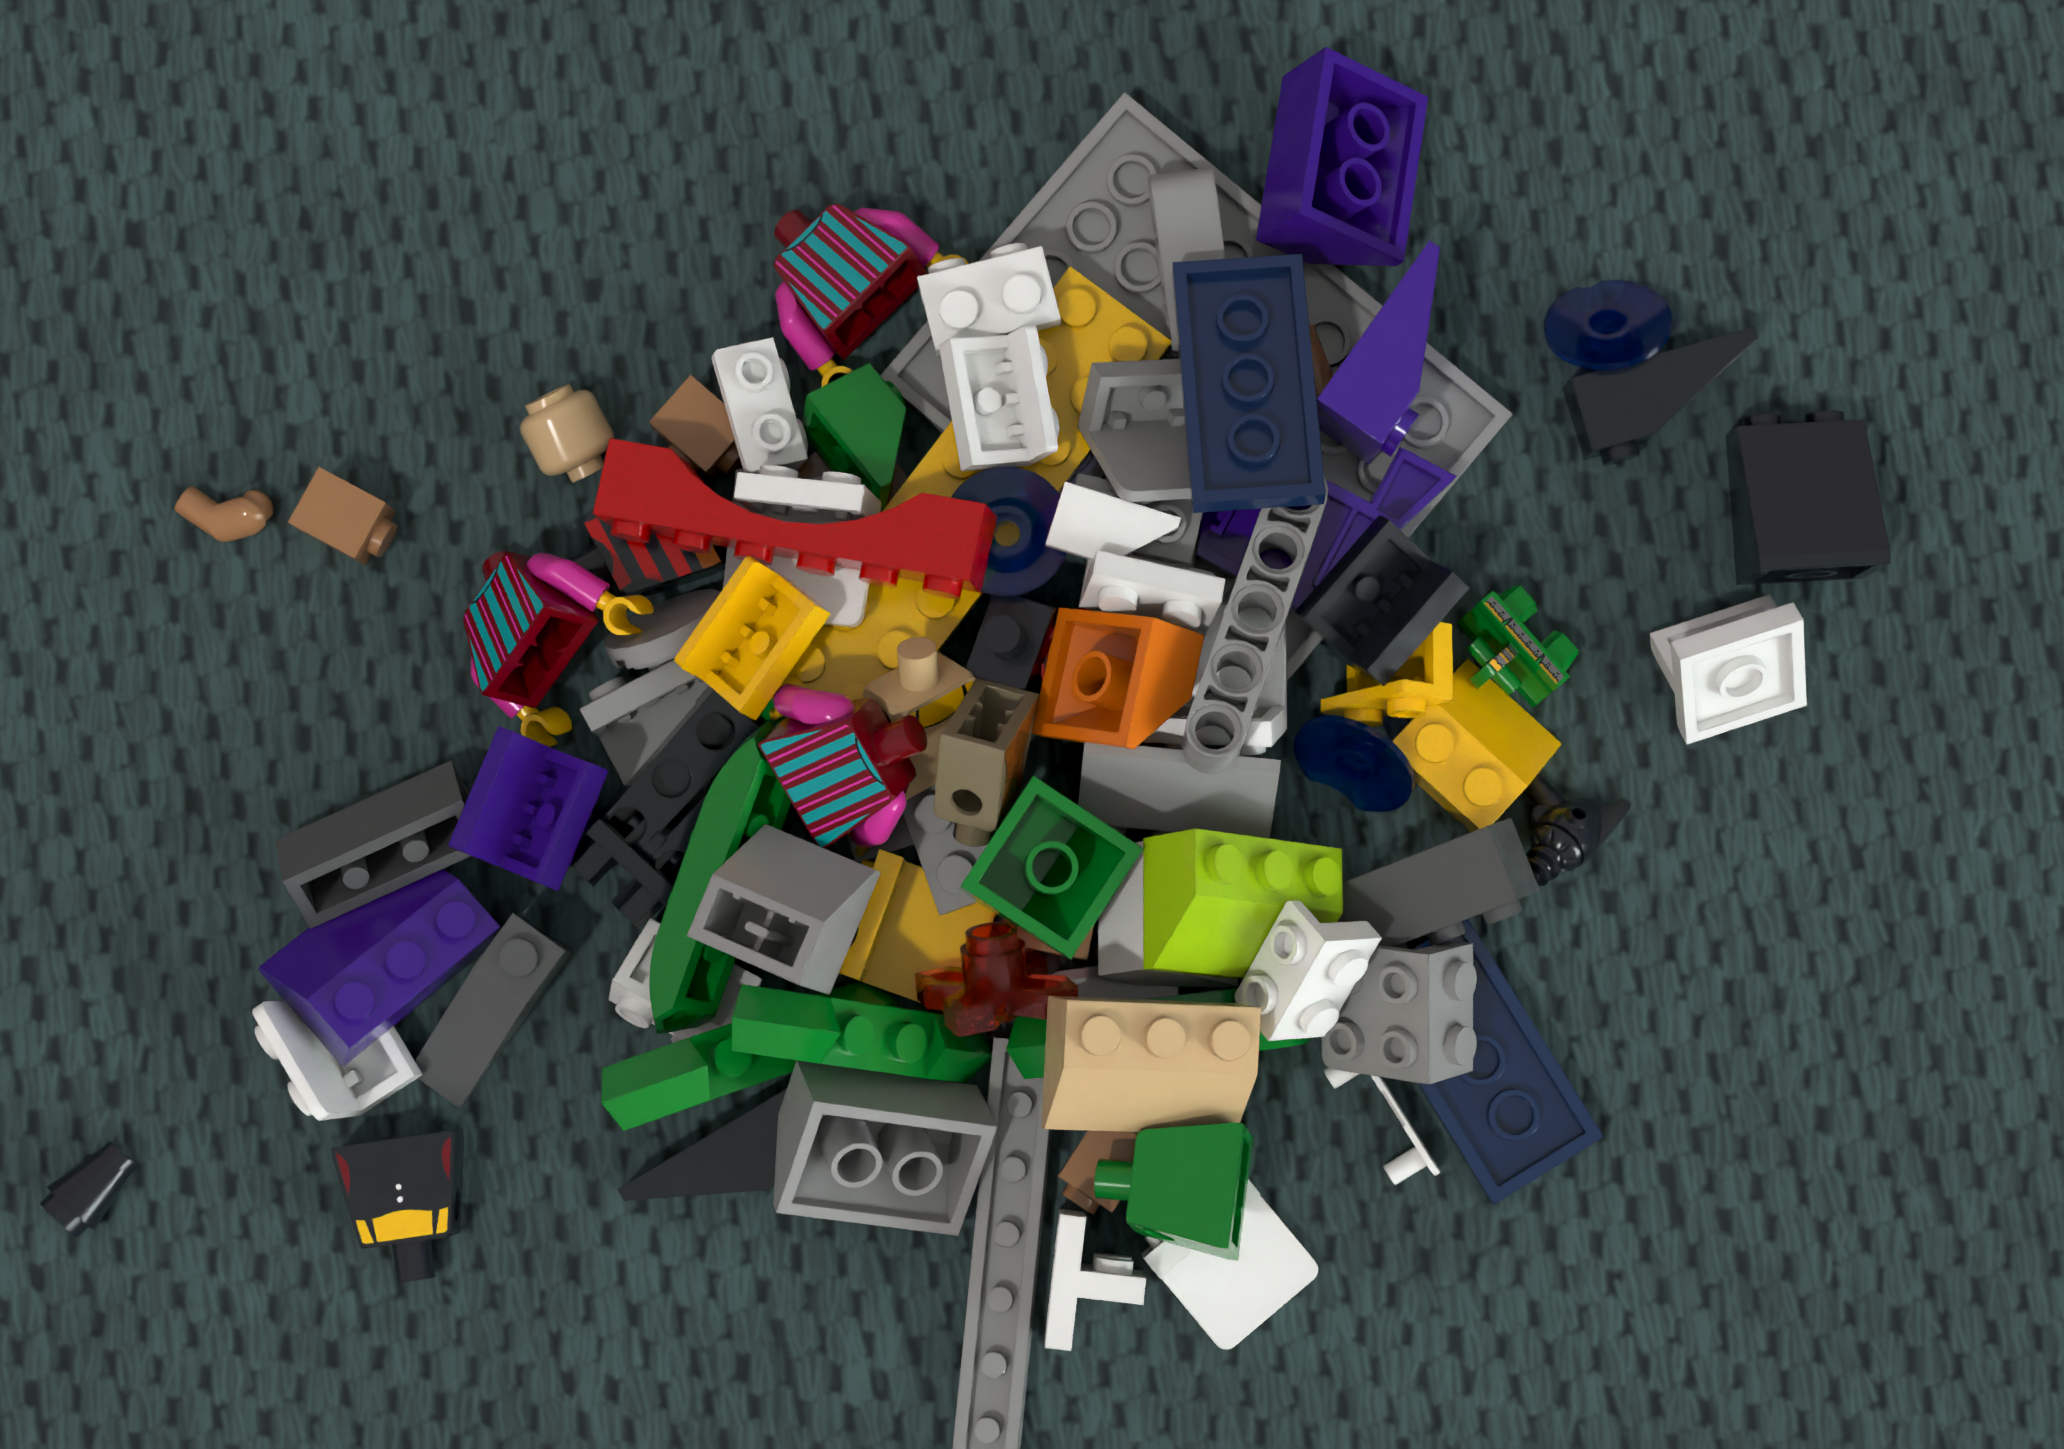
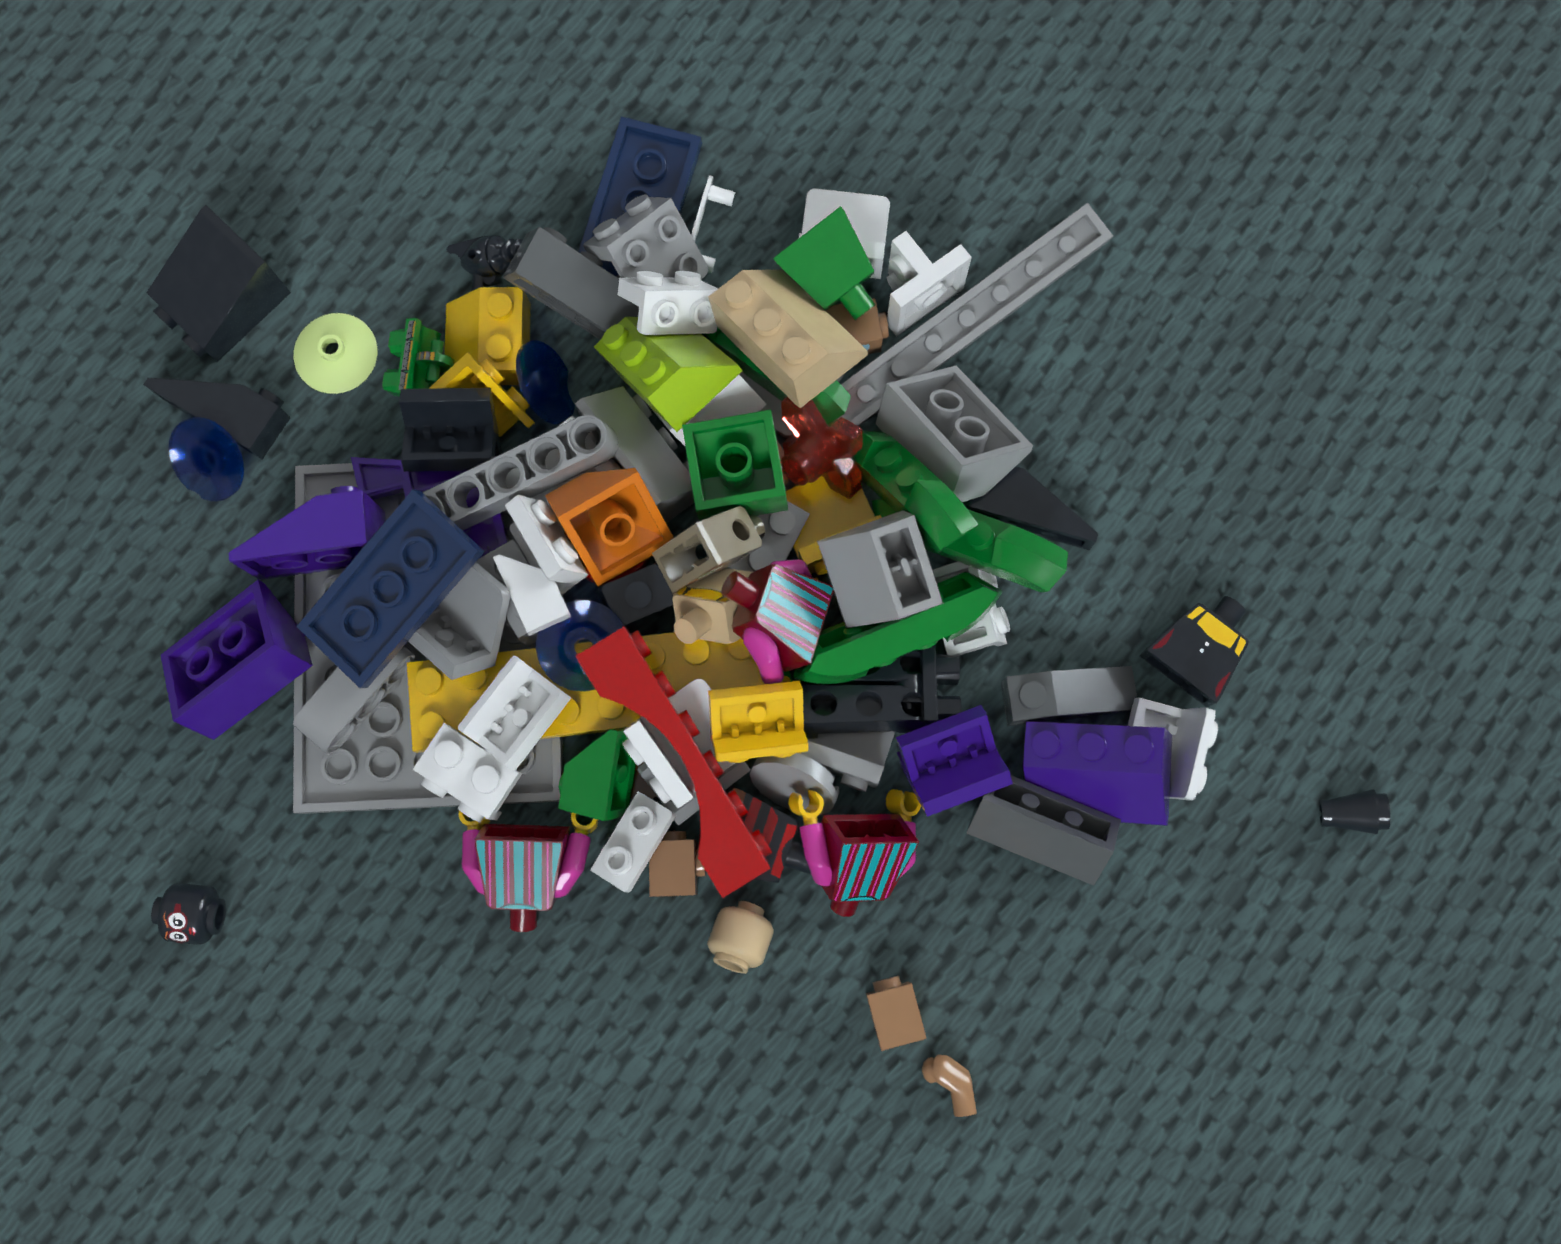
camera: 130 degrees left, 5 degrees down
(1591, 592) = (345, 367): none -> yellowish green dish
(1733, 666) = (329, 254): white bracket -> none

